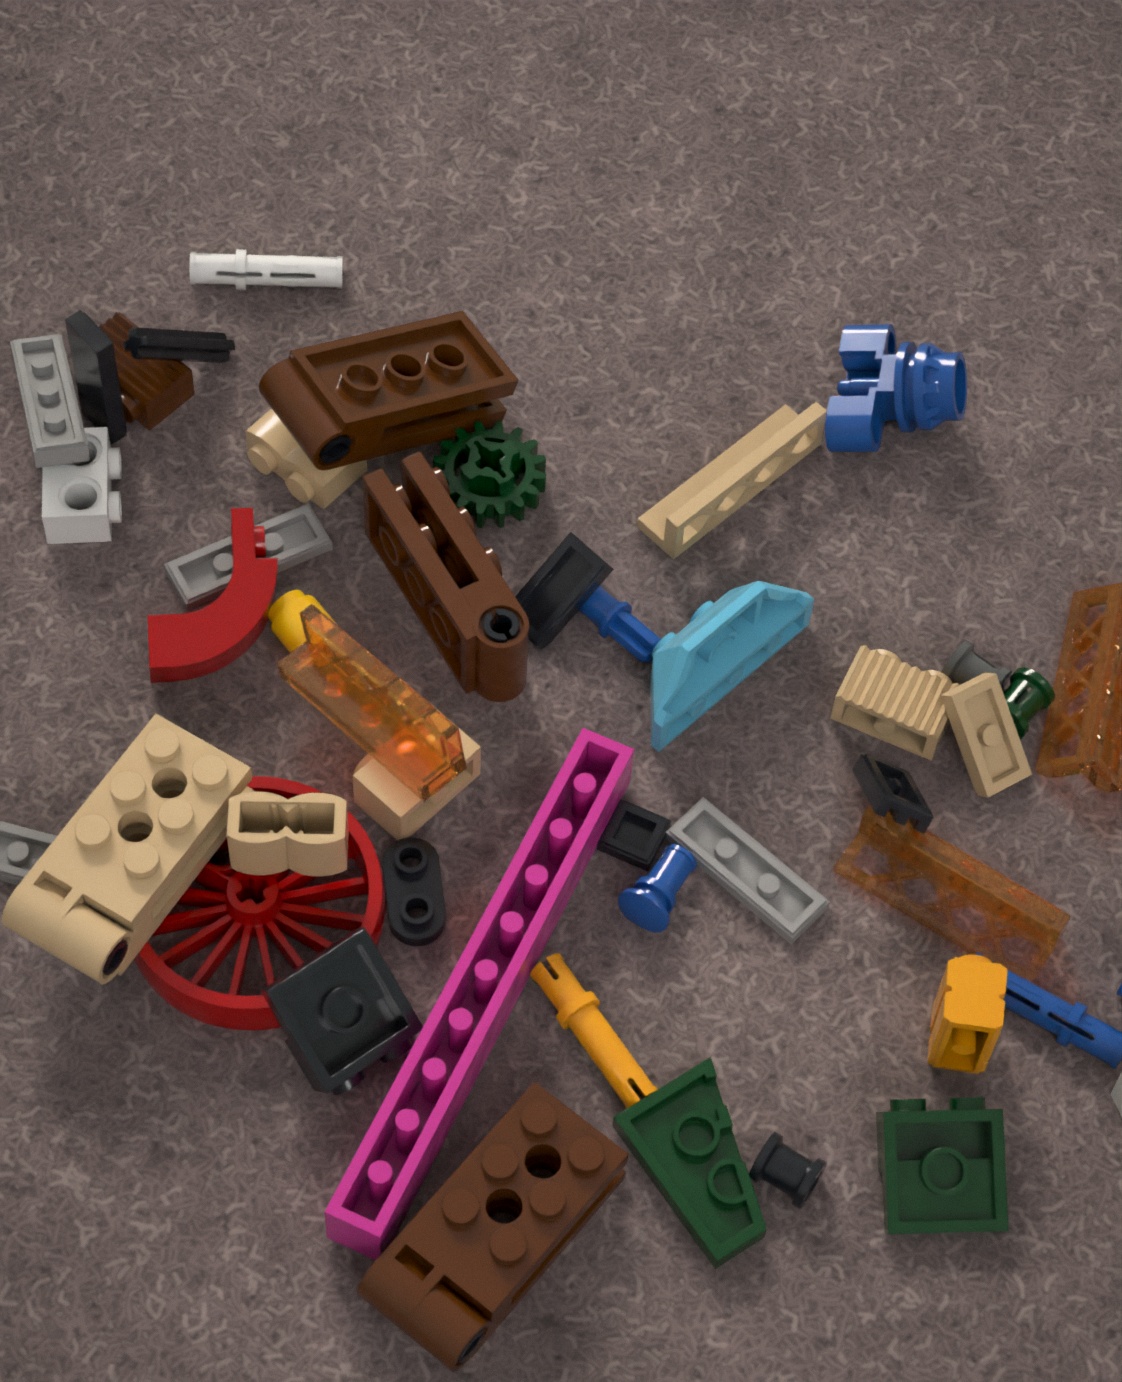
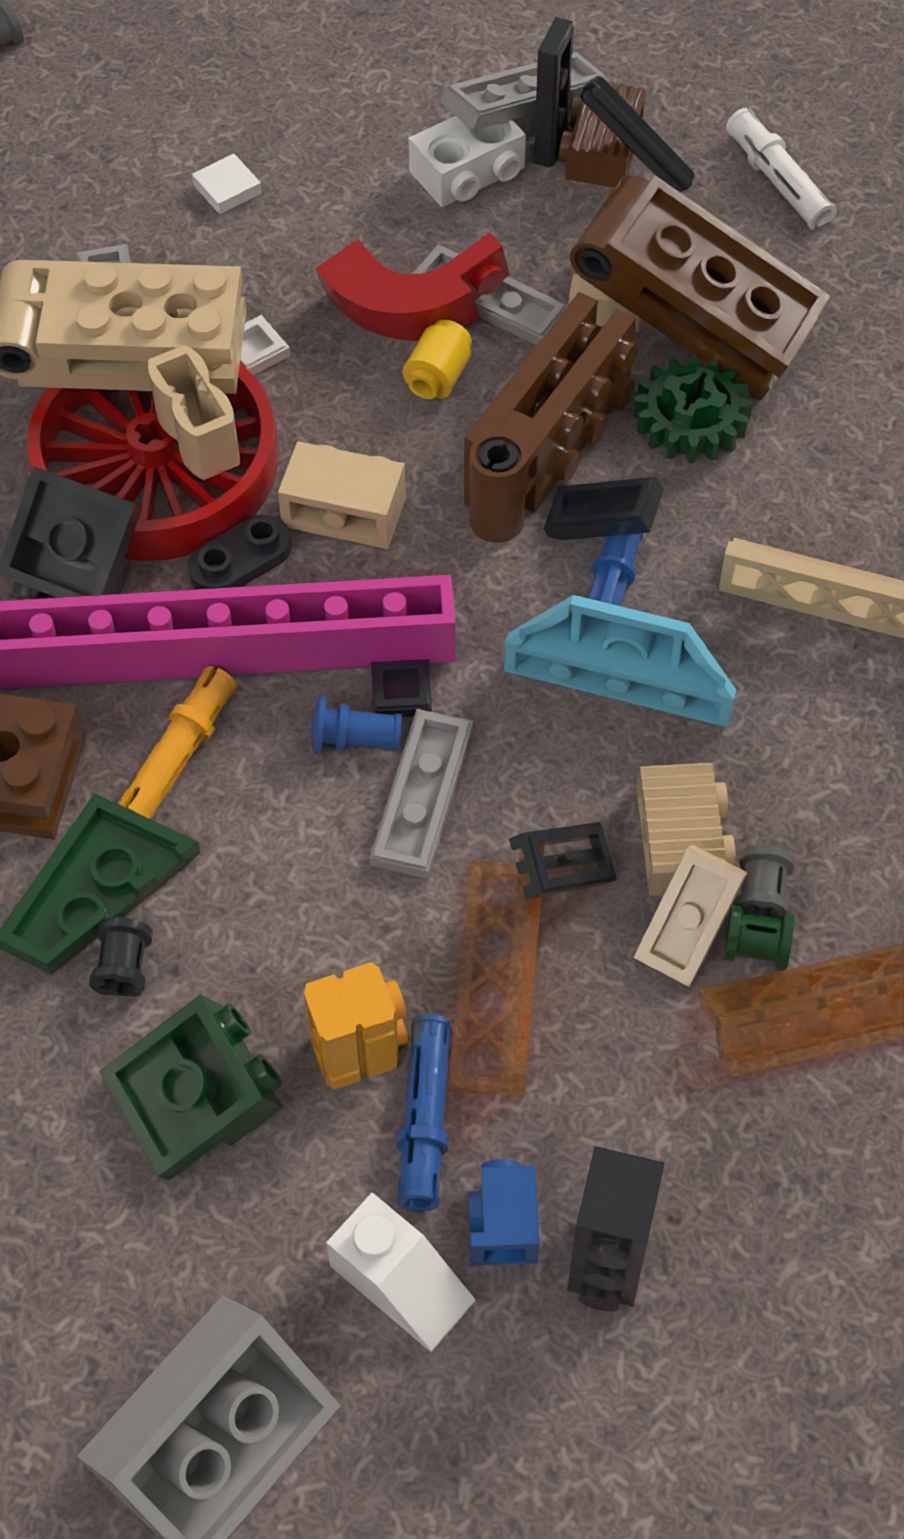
camera: 65 degrees right, 0 degrees up
(373, 706) = (364, 419): clear orange fence -> none

